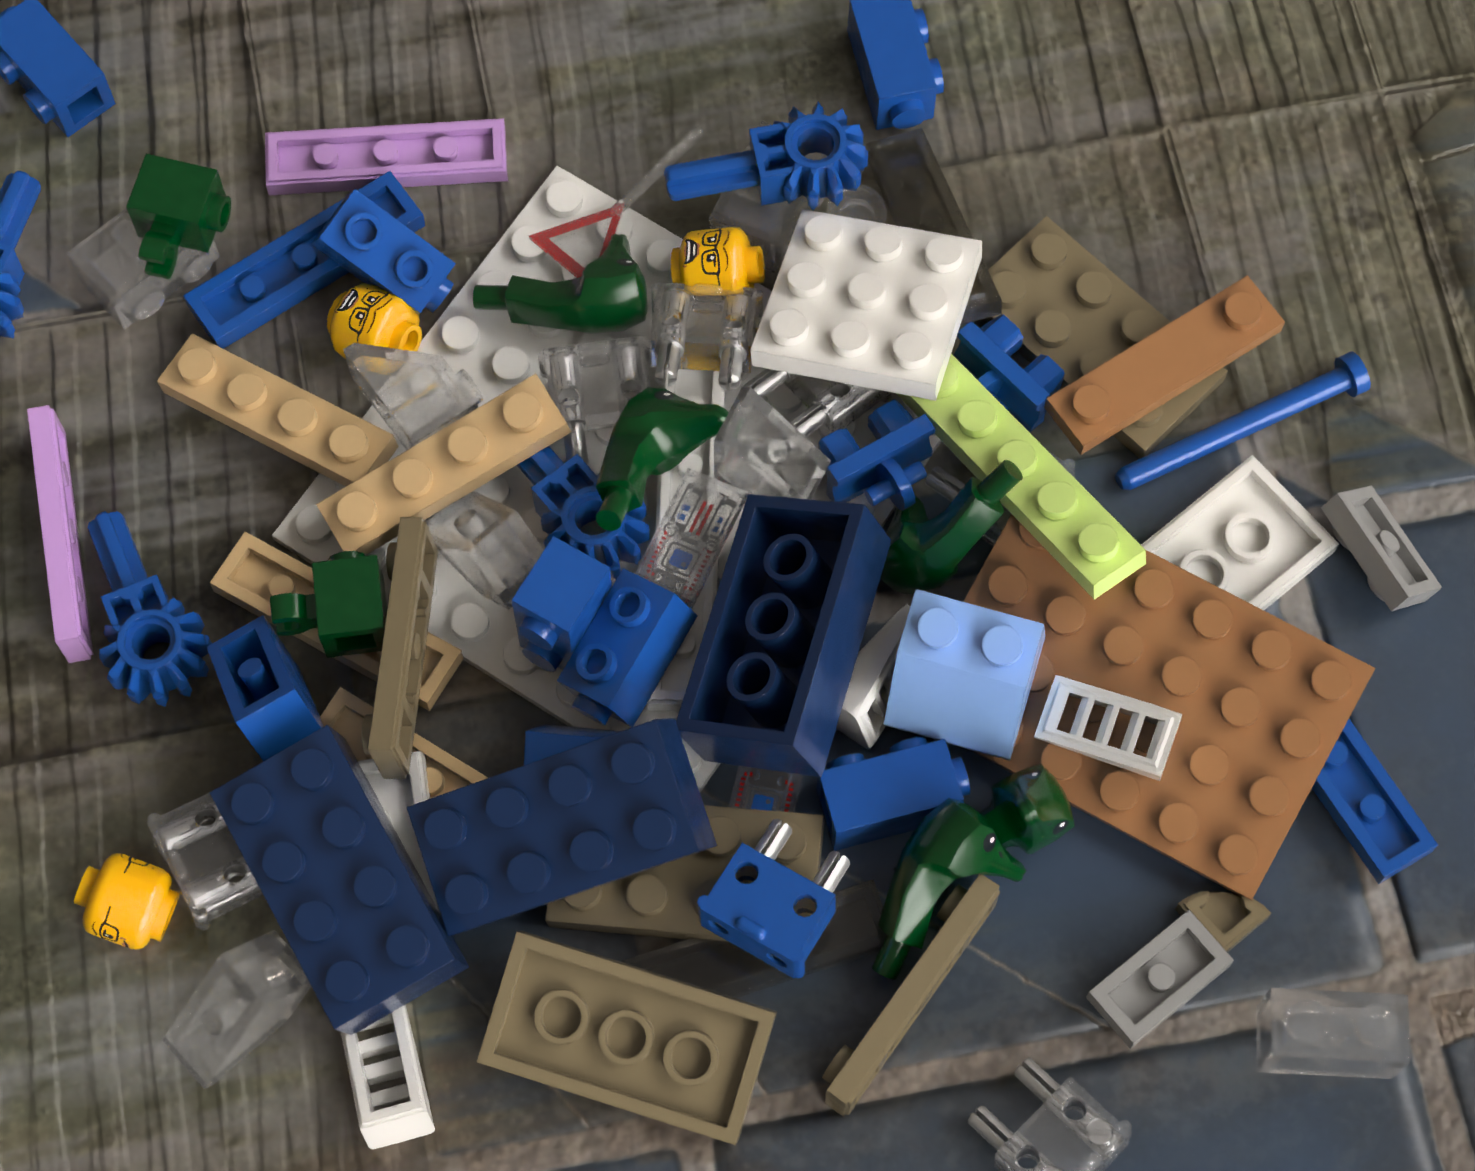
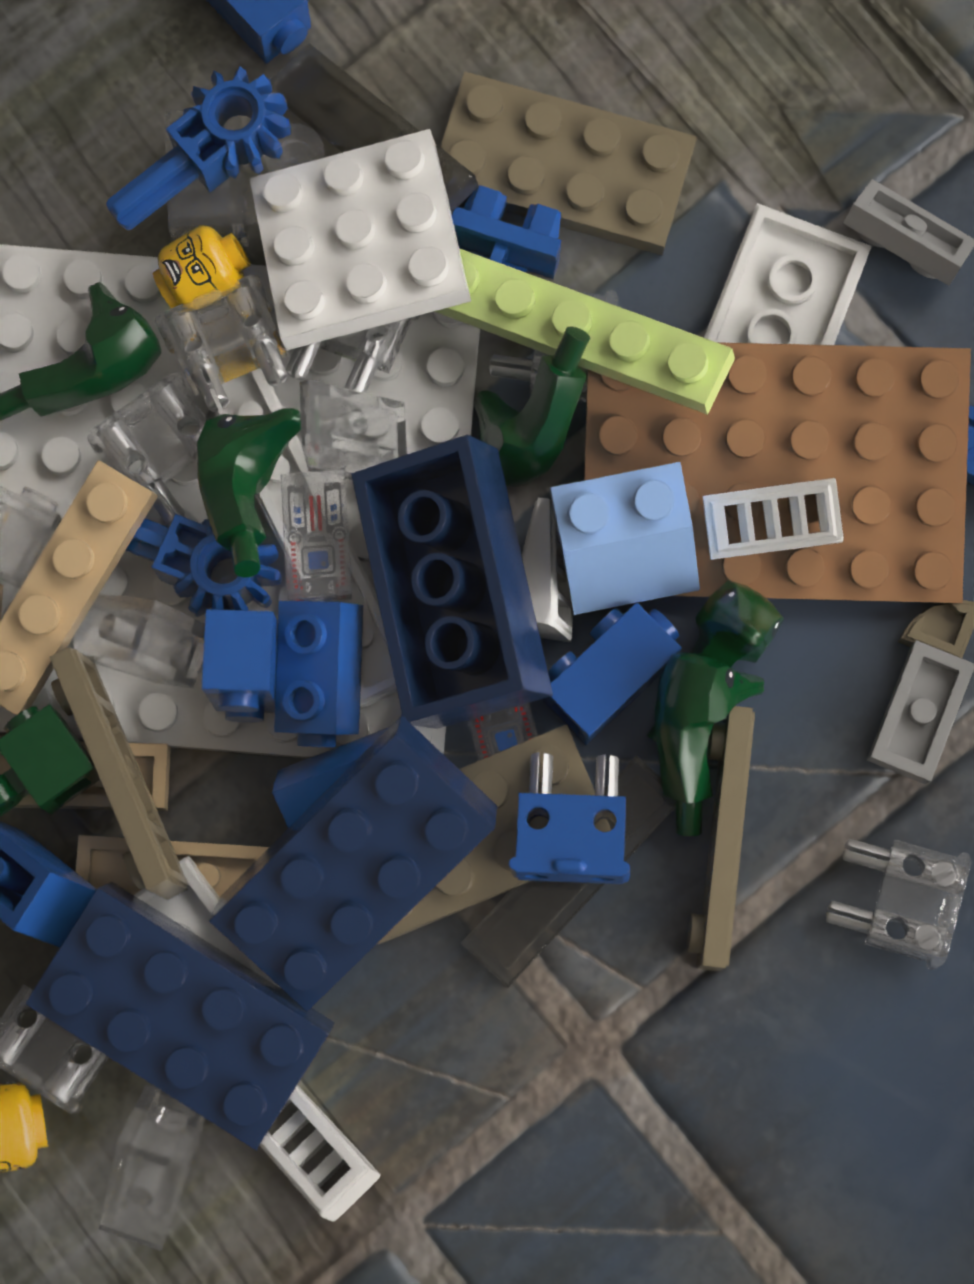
camera: 30 degrees left, 10 degrees up
(588, 237) = (65, 304): clear piece -> none
(627, 1037) = (504, 1008): dark tan plate -> none
(884, 466) = (454, 353): blue hips -> none
(1164, 365) = (643, 161): medium nougat plate -> none
(1348, 376) = (801, 88): blue bar -> none

